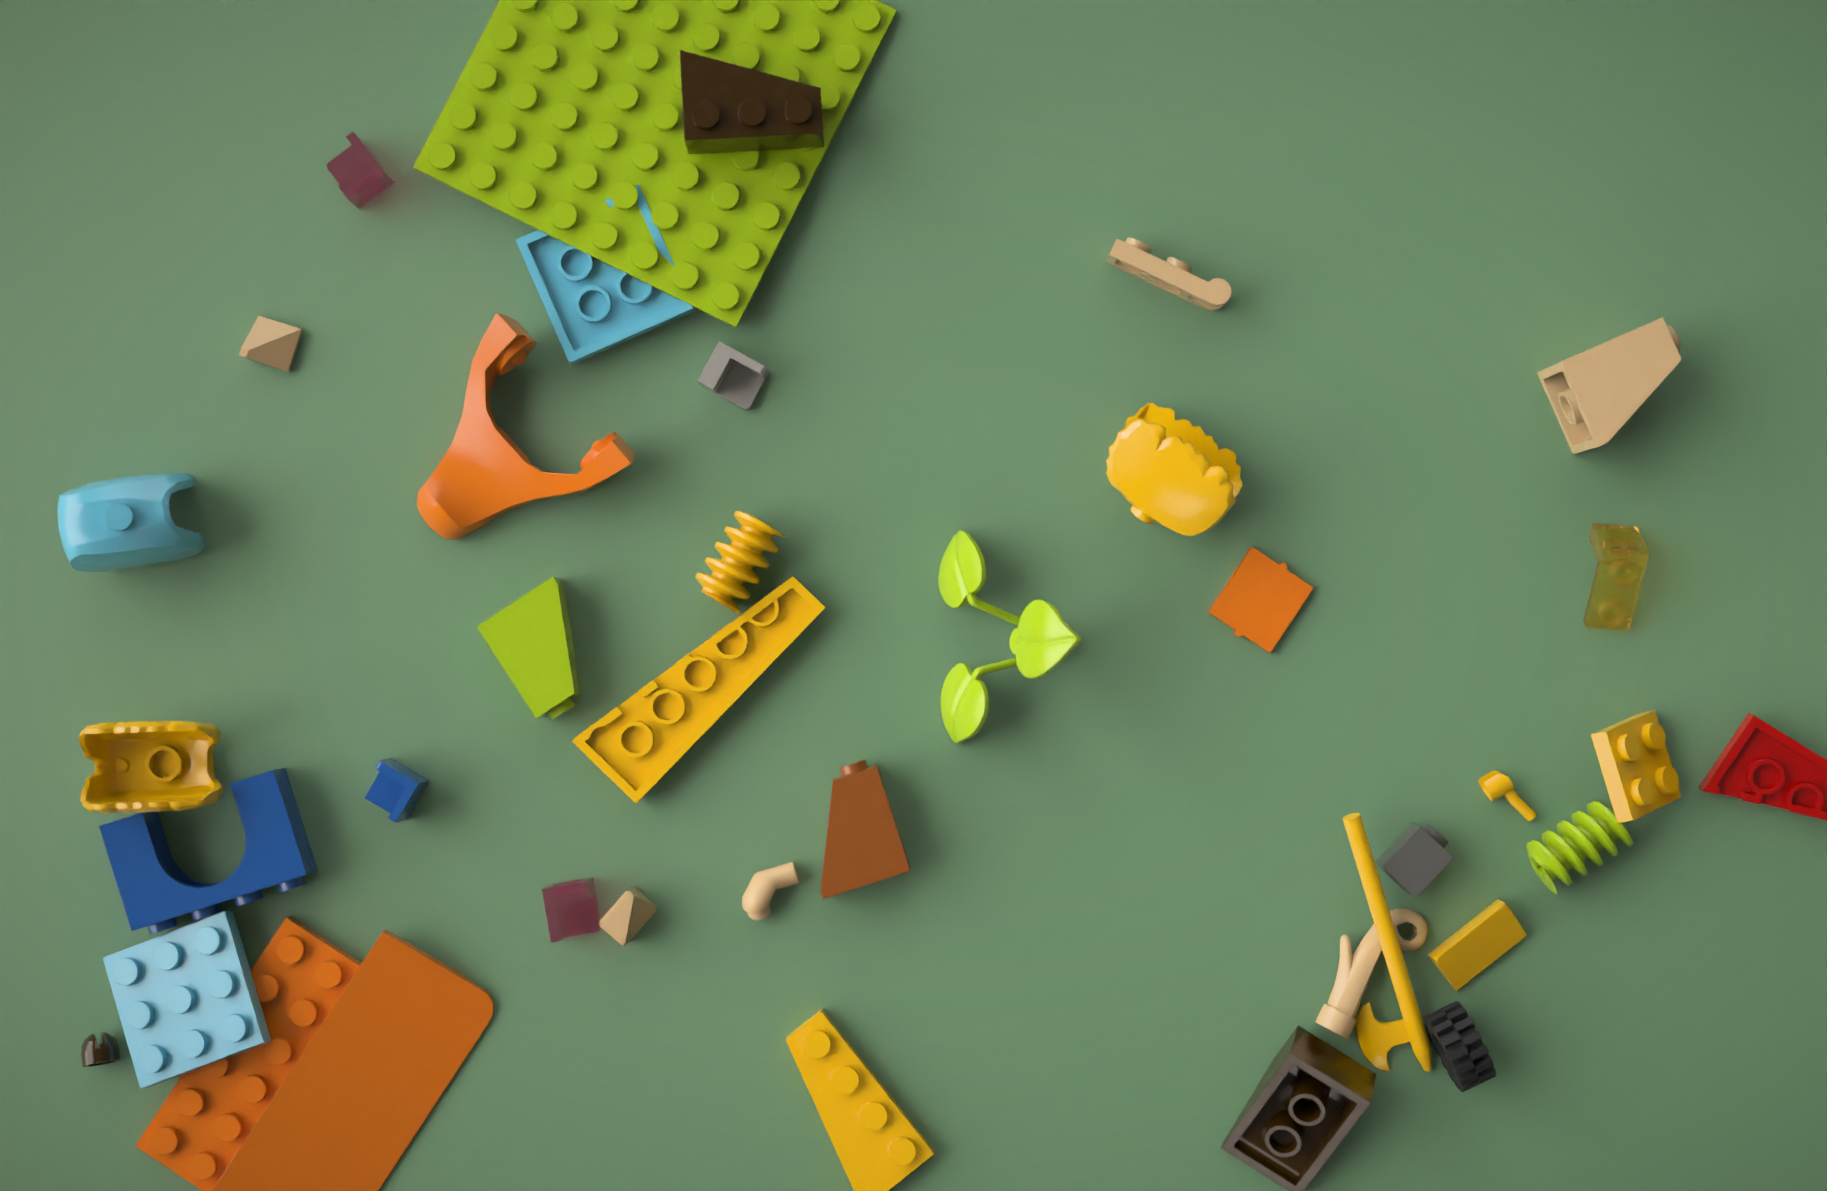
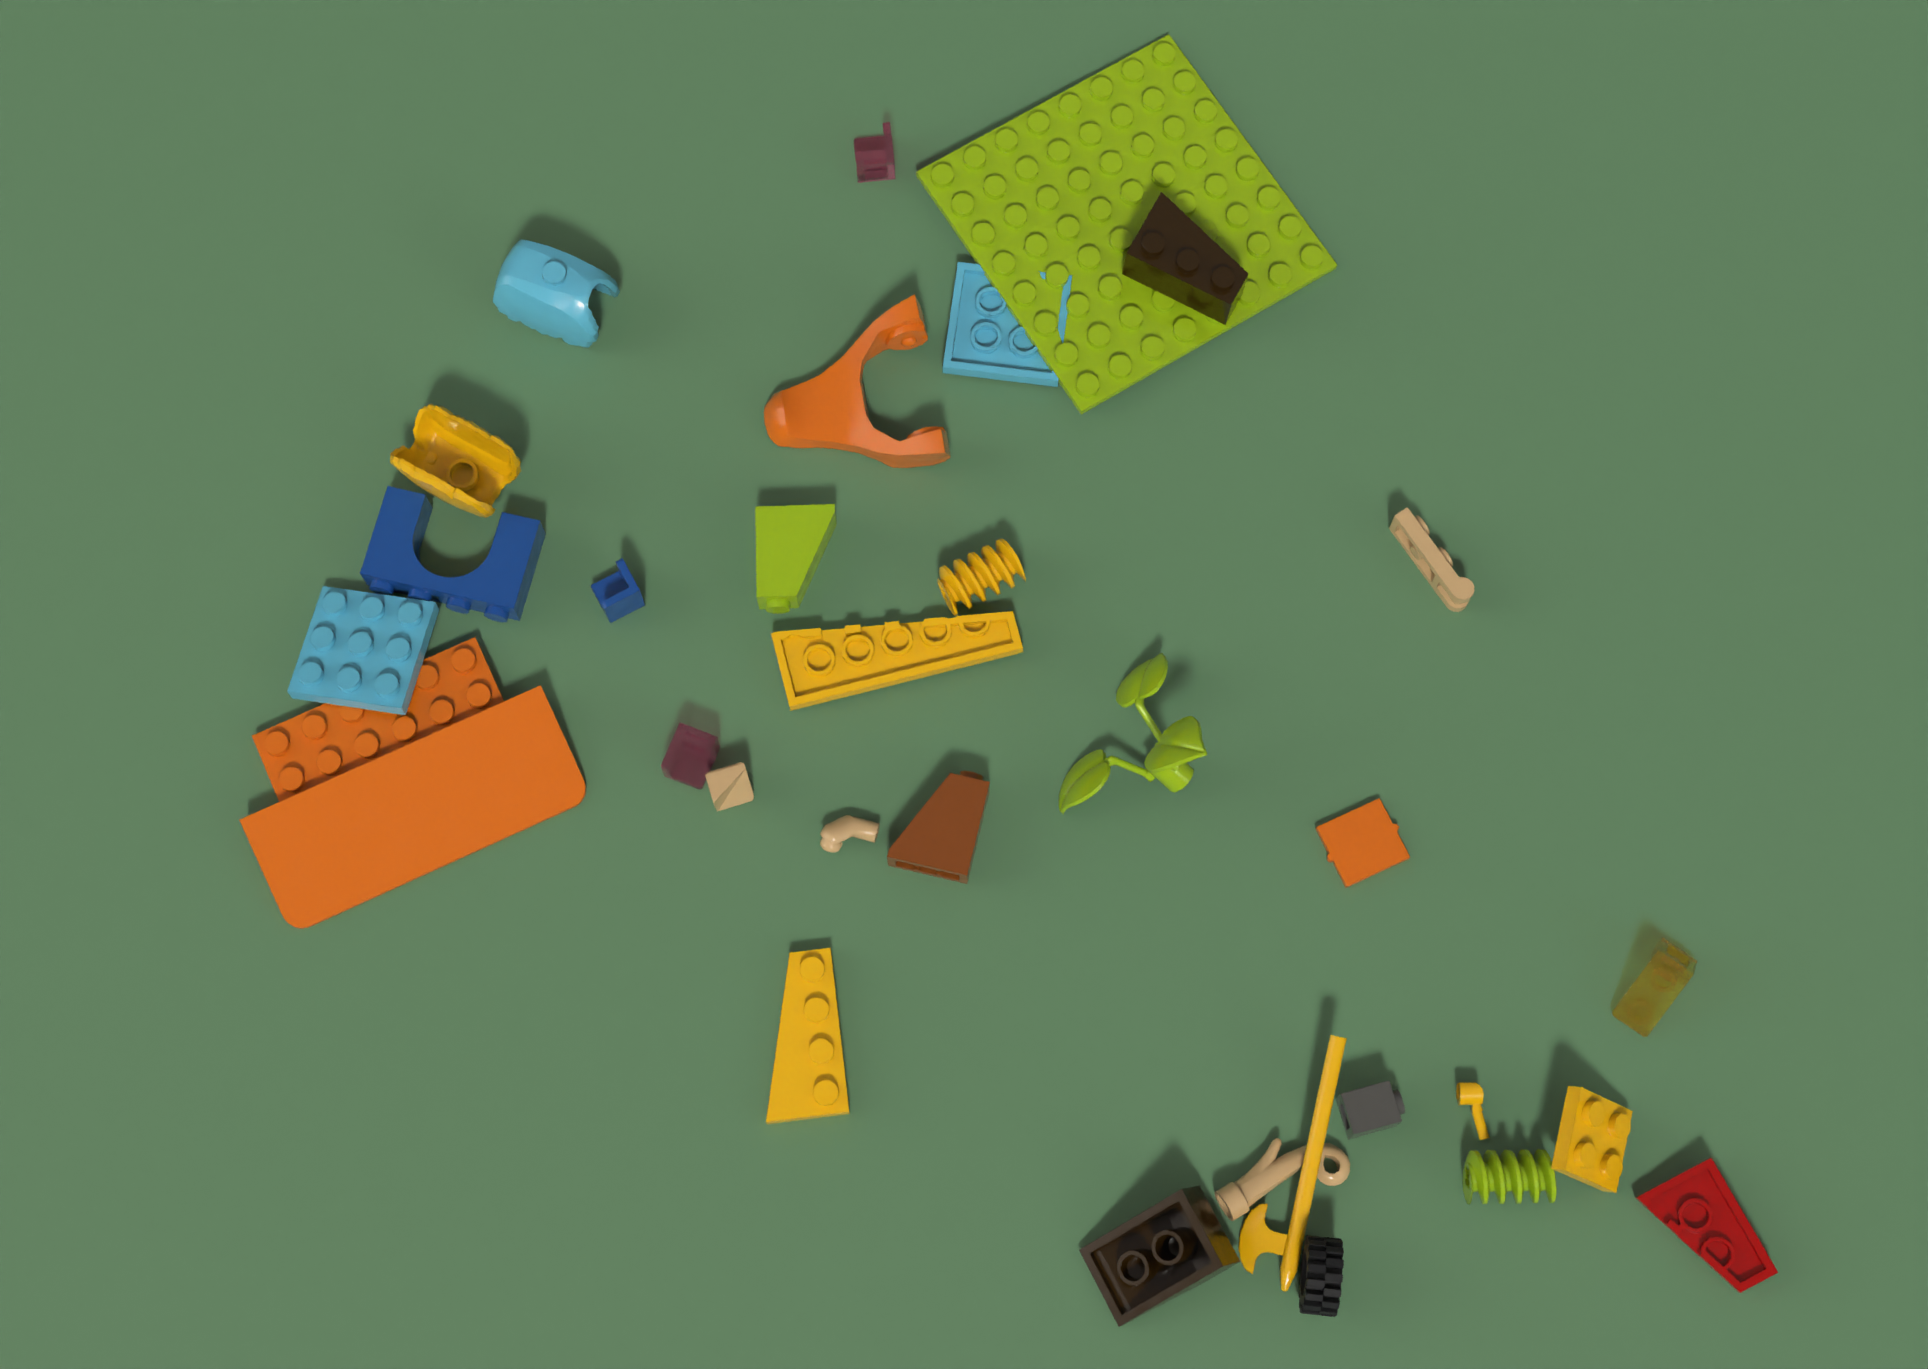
camera: 30 degrees right, 15 degrees down
(99, 1054) = (273, 653): dark brown hinge -> none
(272, 343) = (734, 235): tan slope -> none
(733, 376) = (1057, 445): light grey panel -> none
(1173, 472) = (1349, 699): yellow animal -> none
(1477, 944) = (1382, 1212): yellow slope -> none
(1608, 383) = (1733, 825): tan slope -> none

